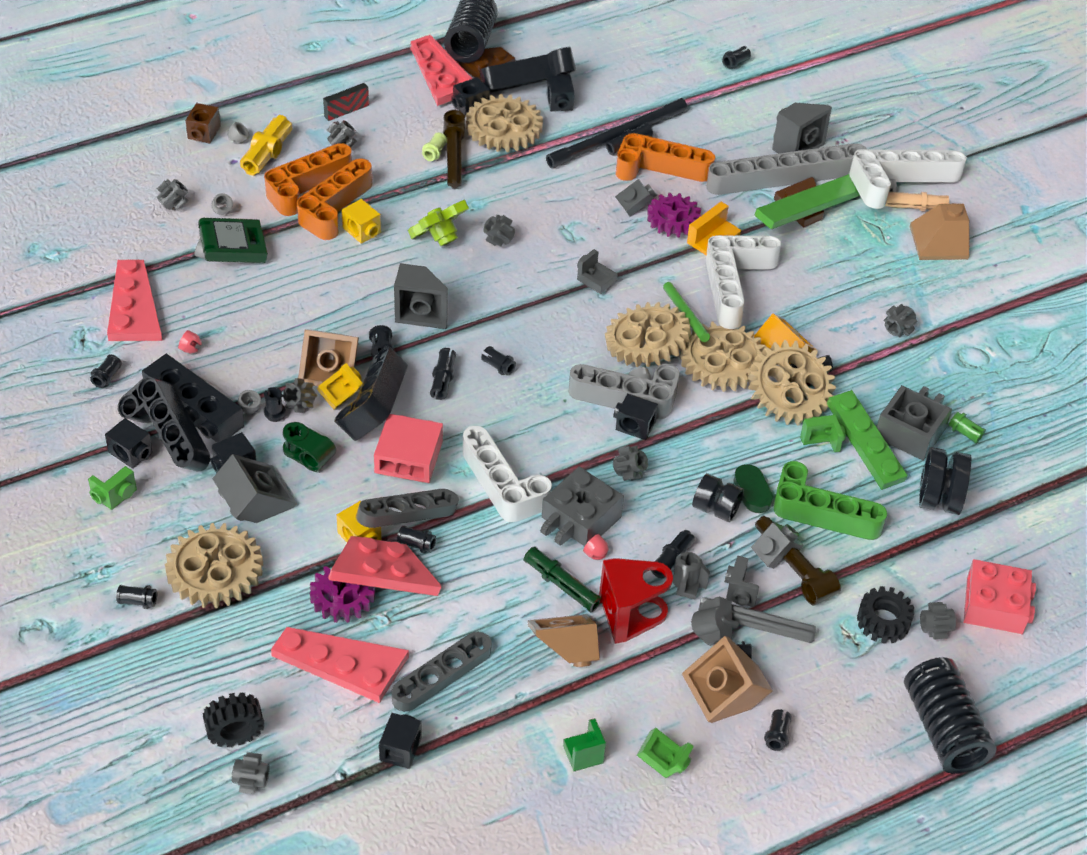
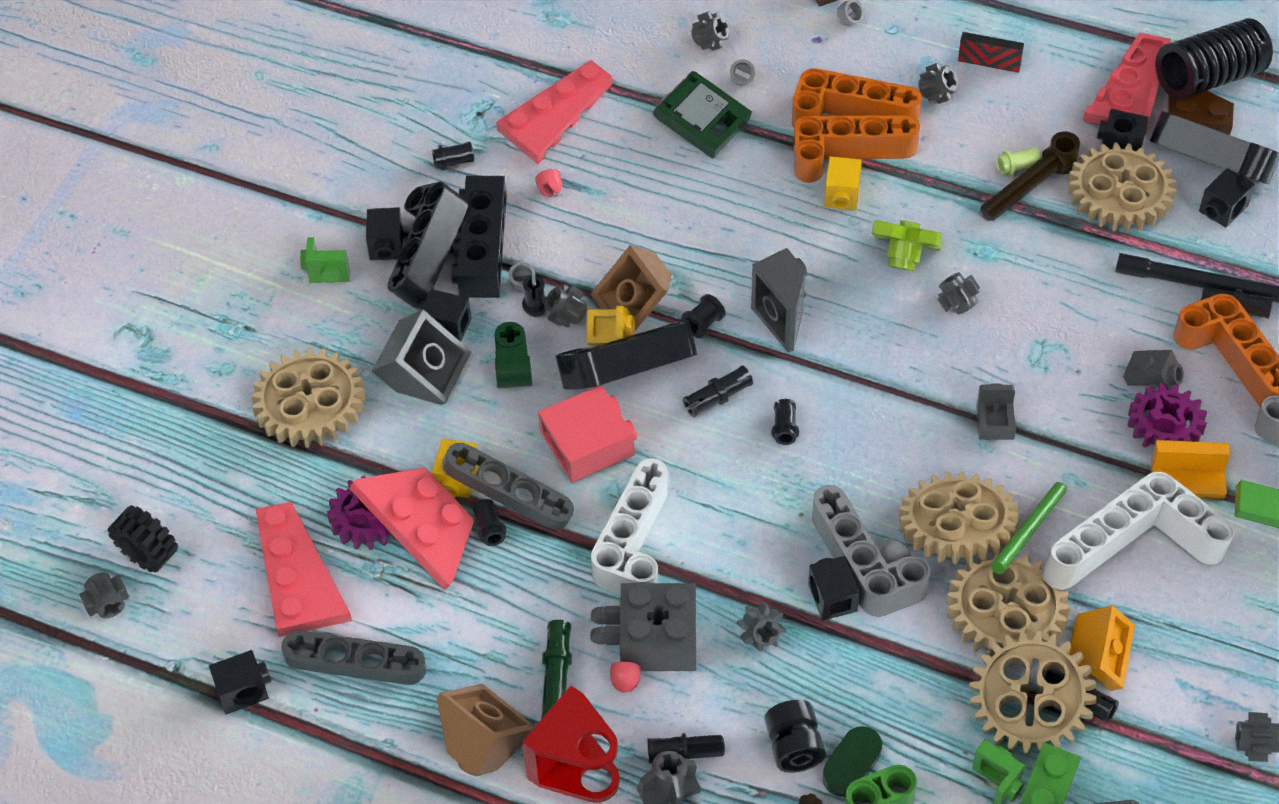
camera: 55 degrees right, 5 degrees up
(140, 596) = (228, 375): black pin -> none
(266, 145) = (858, 43): yellow piece -> none

